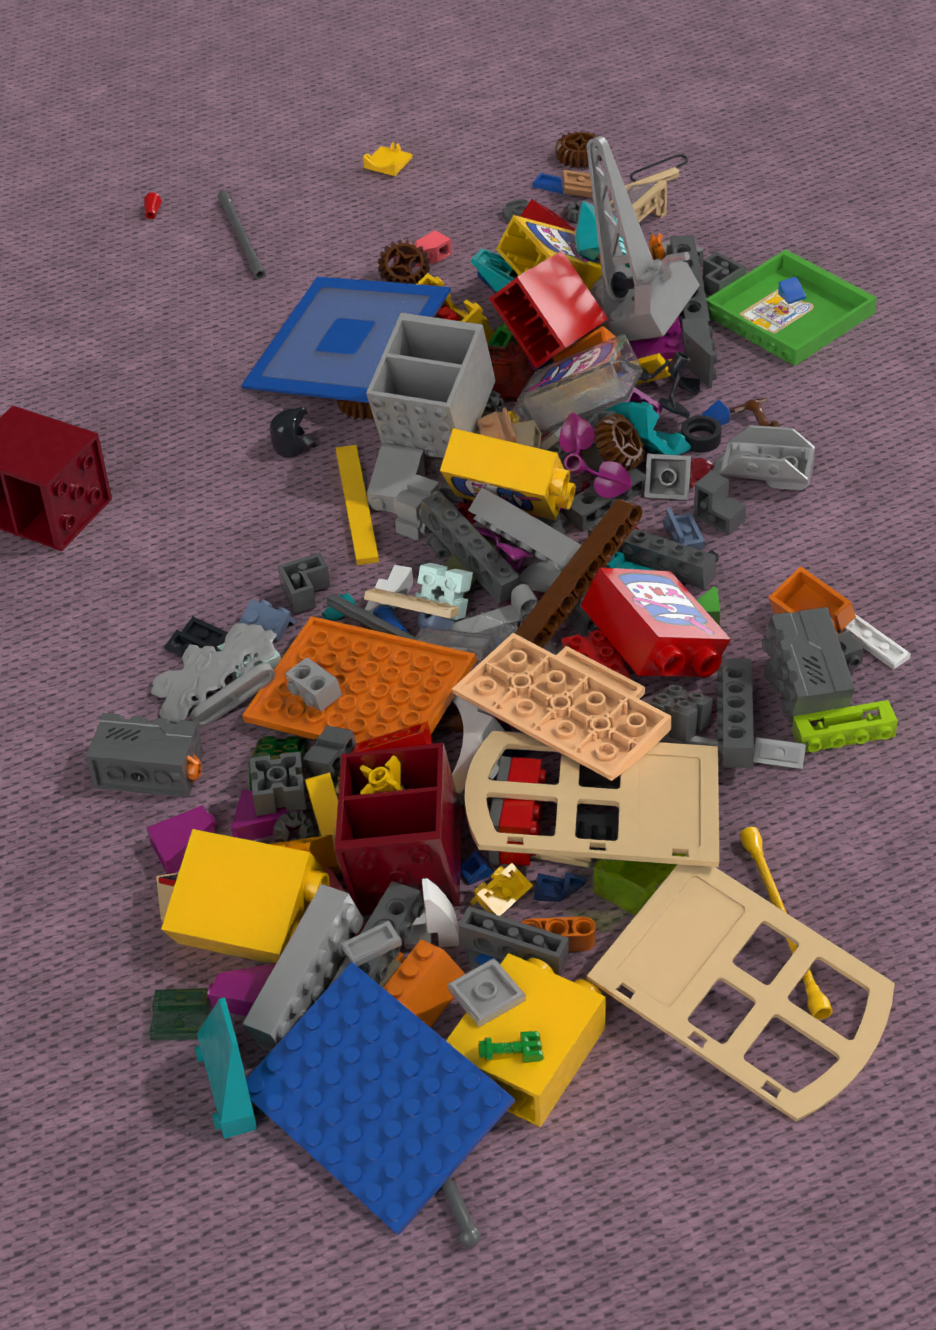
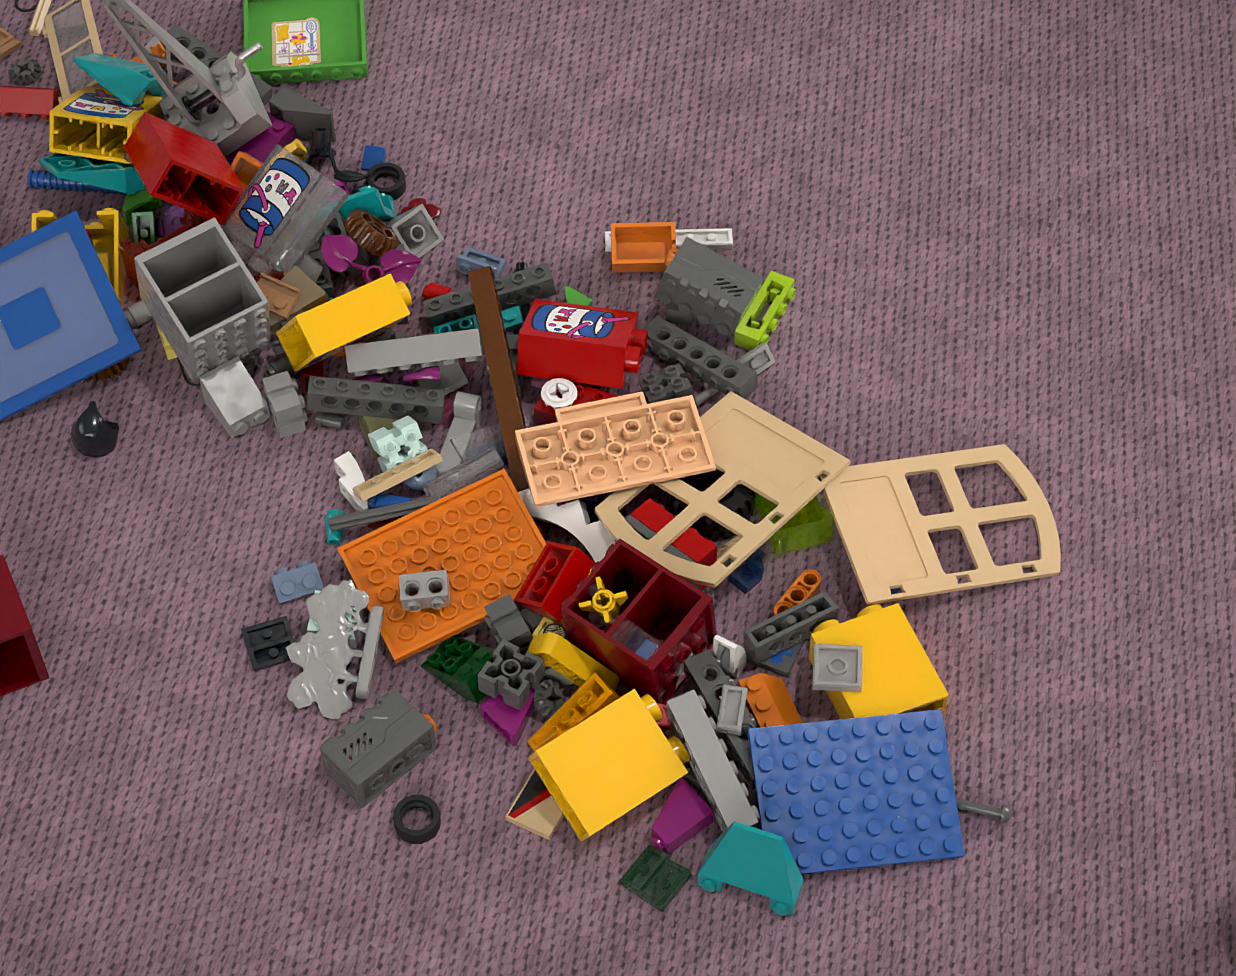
camera: 55 degrees left, 10 degrees up
(107, 837) = (422, 835): none -> black tyre
(172, 836) = (483, 778): magenta slope -> none
(301, 579) = (283, 533): dark grey brick -> none
(357, 505) = (221, 442): yellow tile -> none
(503, 891) = (728, 606): yellow bracket -> none
(529, 1047) = (891, 696): green hinge -> none
(585, 633) = (565, 387): none -> white gear
(715, 506) = (480, 228): dark grey brick -> none
(720, 272) = (224, 37): dark grey brick -> none
(752, 842) = (982, 496): yellow hose -> none
(753, 405) = (426, 141): reddish brown piece -> none
(769, 454) = (460, 163): light grey slope -> none
(791, 290) = (299, 18): blue slope -> none

